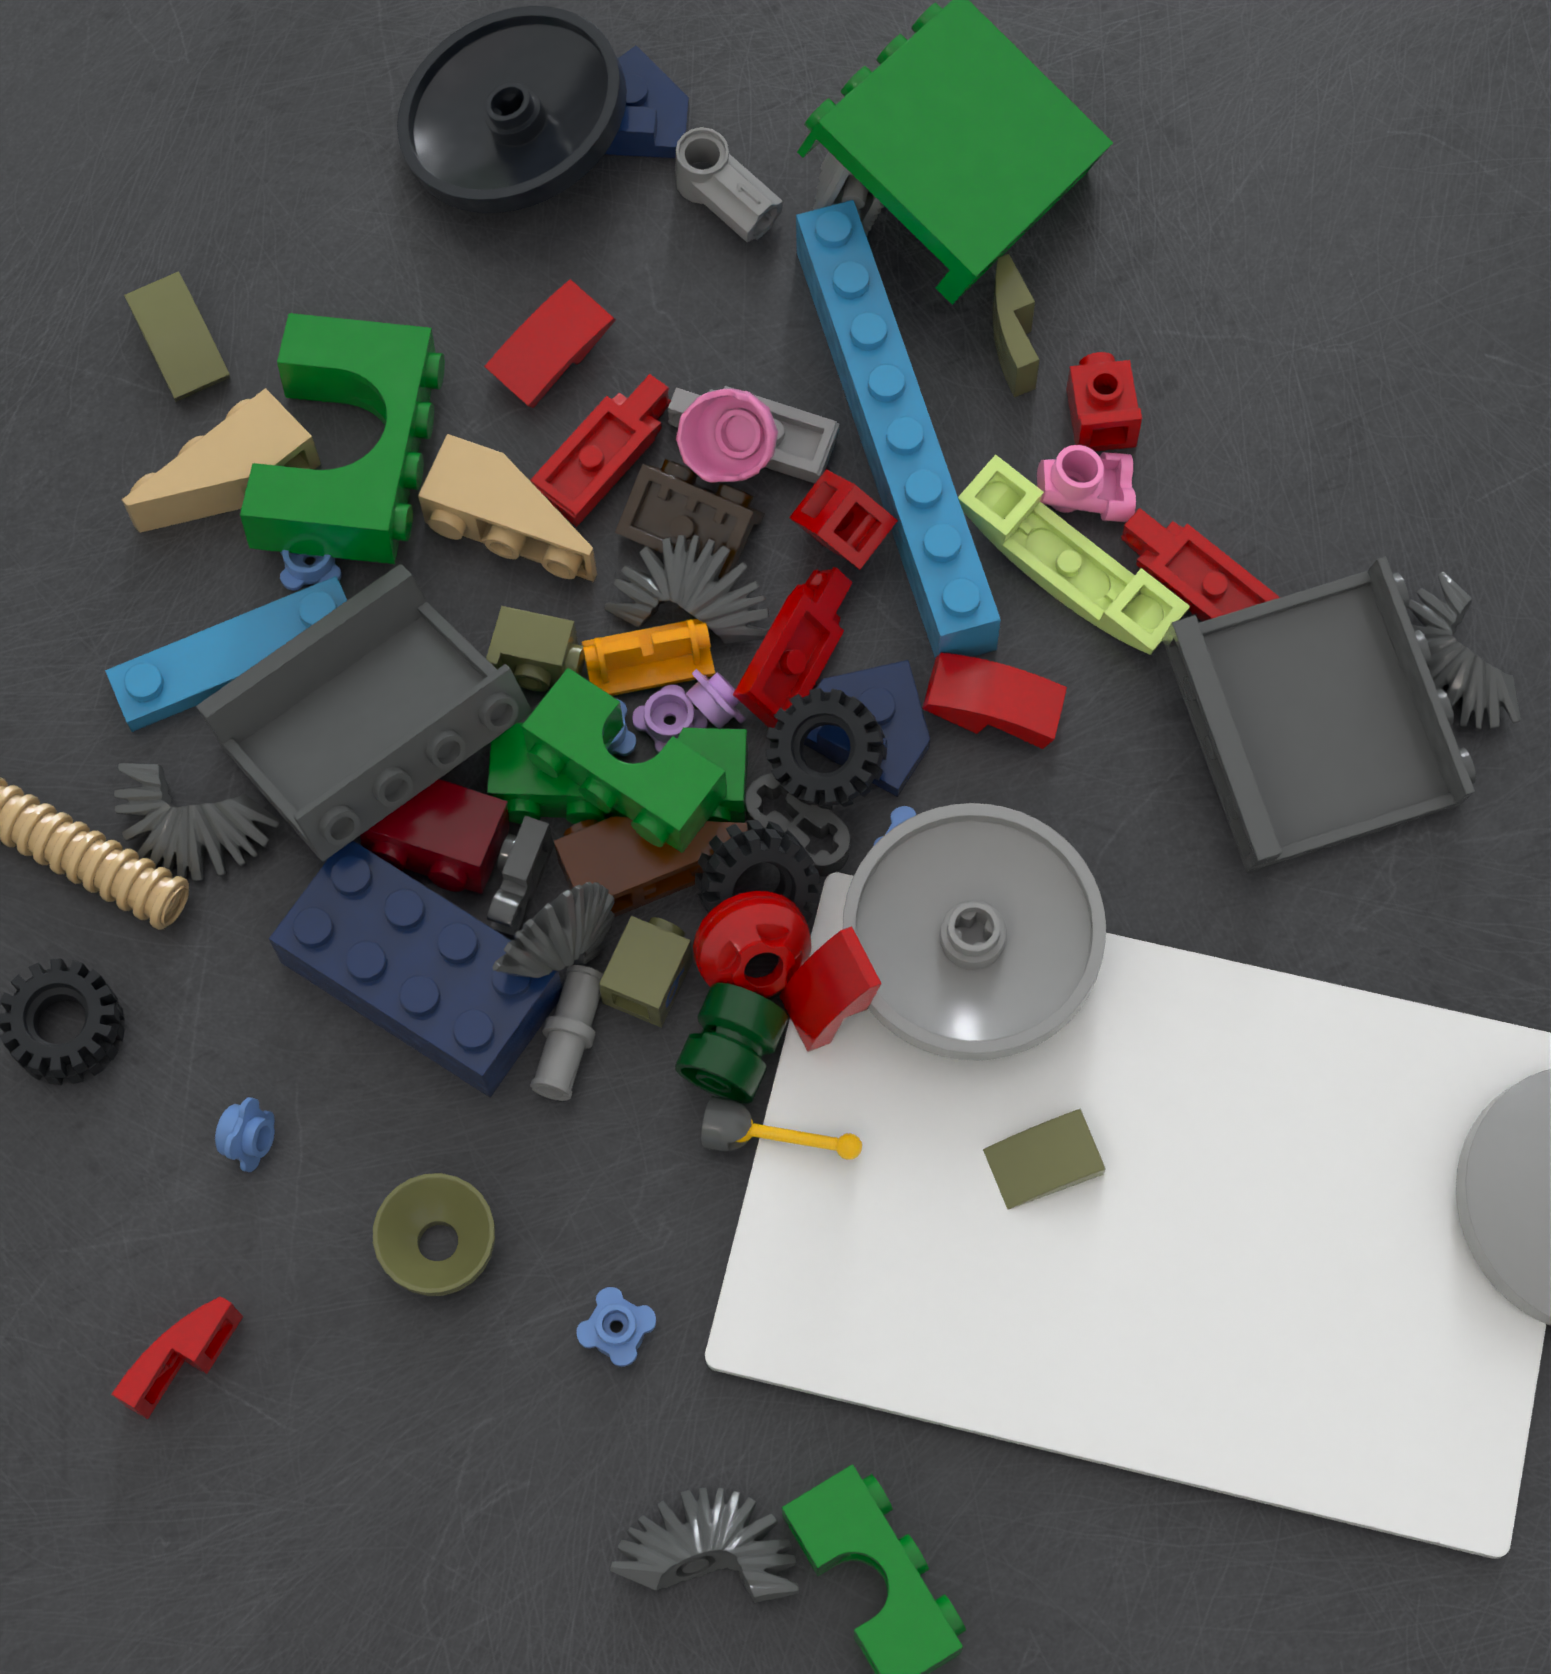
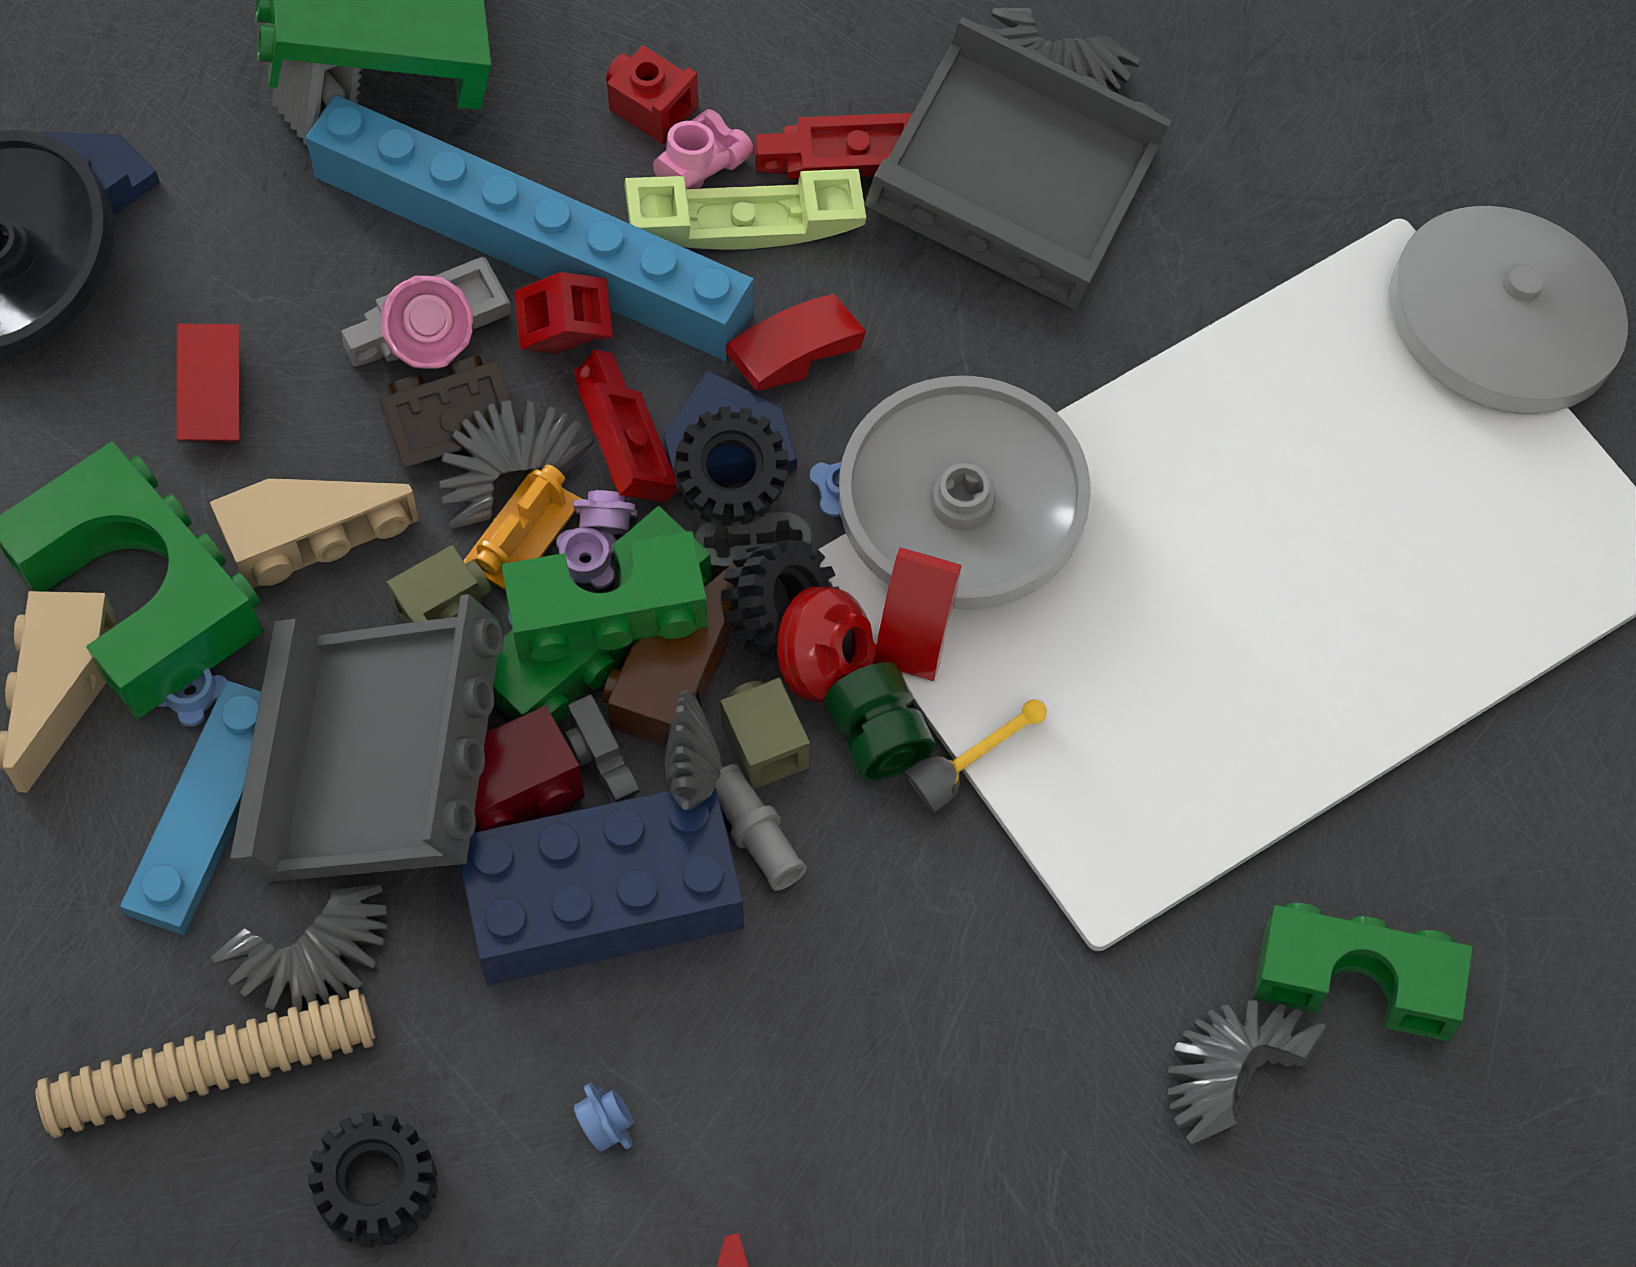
camera: 50 degrees left, 5 degrees down
(424, 1204) = (815, 1016): olive piece -> none
(602, 450) = (330, 417): red hinge -> none
(618, 1346) = (1010, 1004): medium blue plate -> none
(726, 187) = (215, 171): light grey piece -> none
(1011, 322) = (549, 107): olive slope -> none
(1044, 1159) = (1164, 600): olive slope -> none

